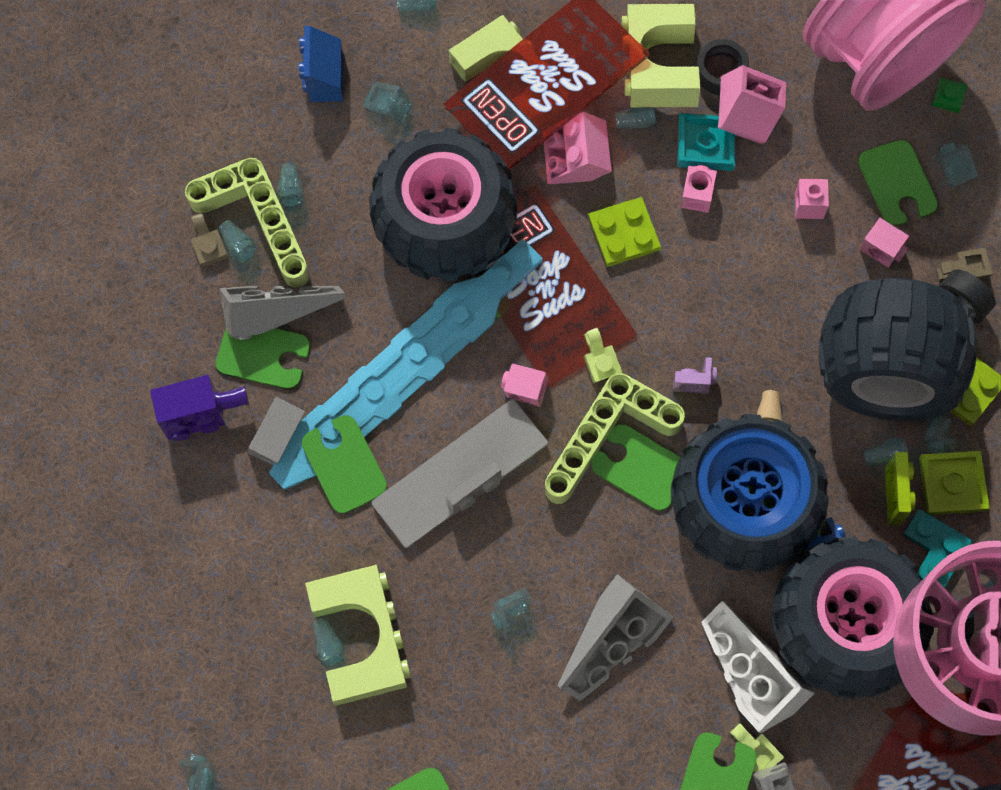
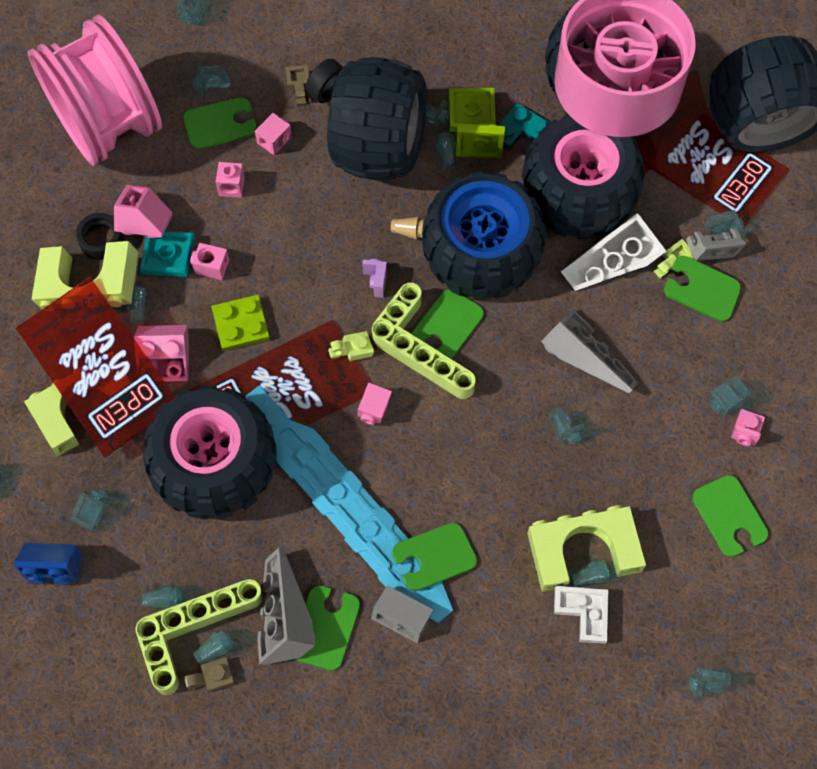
camera: 90 degrees left, 5 degrees down
(193, 407) = (378, 680): dark purple brick -> none
(287, 642) = (589, 605): none -> white plate
(459, 473) = (448, 462): light grey bracket -> none
(949, 95) = (152, 77): green plate -> none

